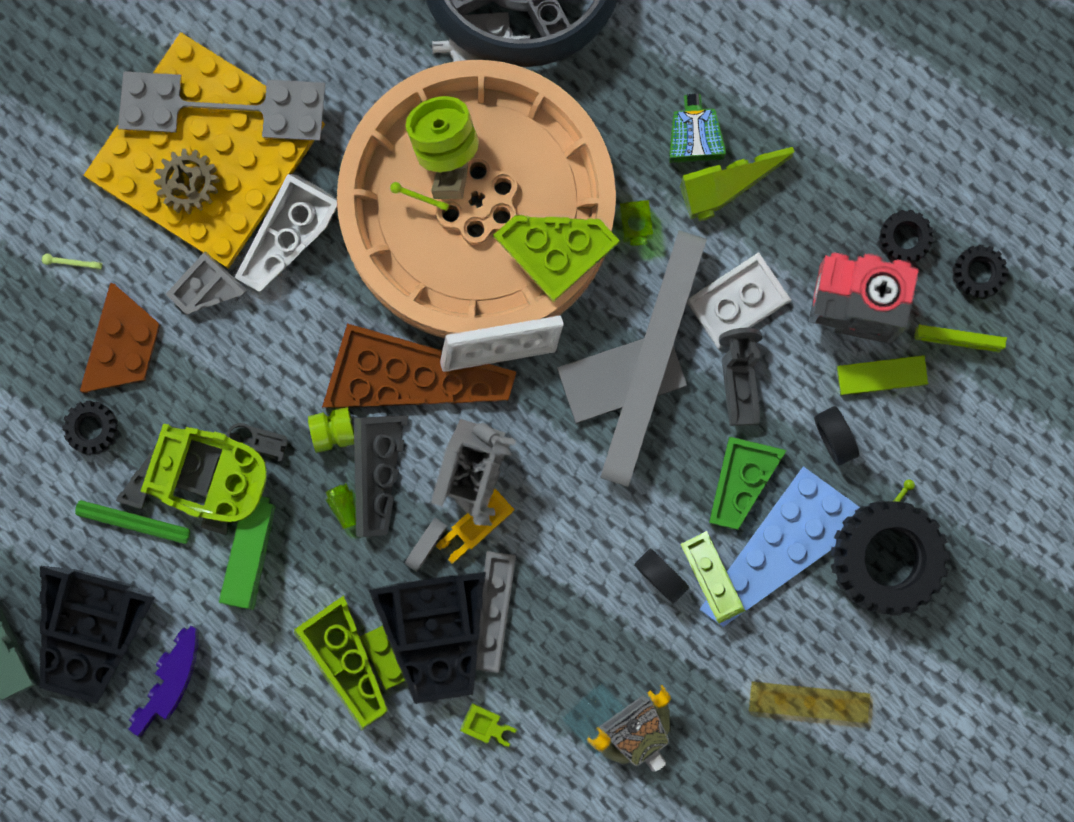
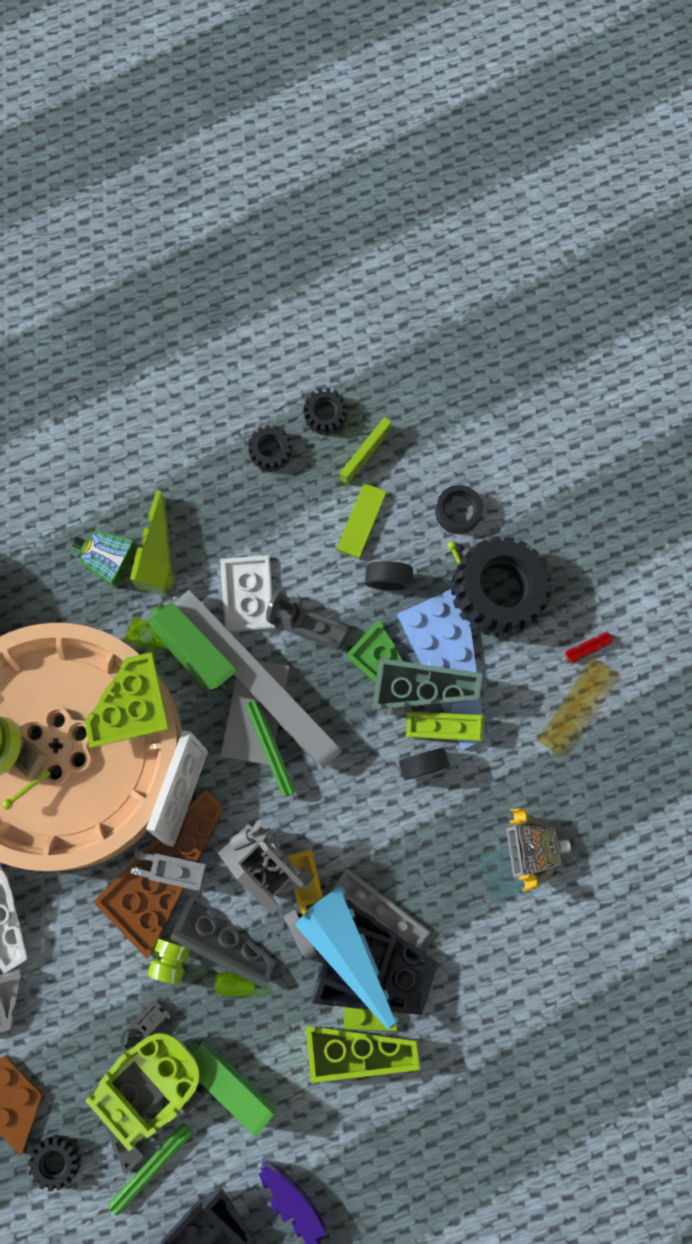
camera: 65 degrees left, 5 degrees down
(419, 384) = (172, 871): none -> light grey hinge
(443, 577) = (335, 936): none -> medium azure wedge
(483, 724) = (464, 967): lime plate -> none
(591, 412) = (270, 748): none -> bright green axle
(648, 275) = (190, 647): none -> bright green slope
(736, 522) = (419, 684): none -> sand green wedge
(864, 296) = (300, 495): piece -> none
(879, 684) = (588, 647): none -> red axle
(955, 448) = (463, 491): none -> black tyre

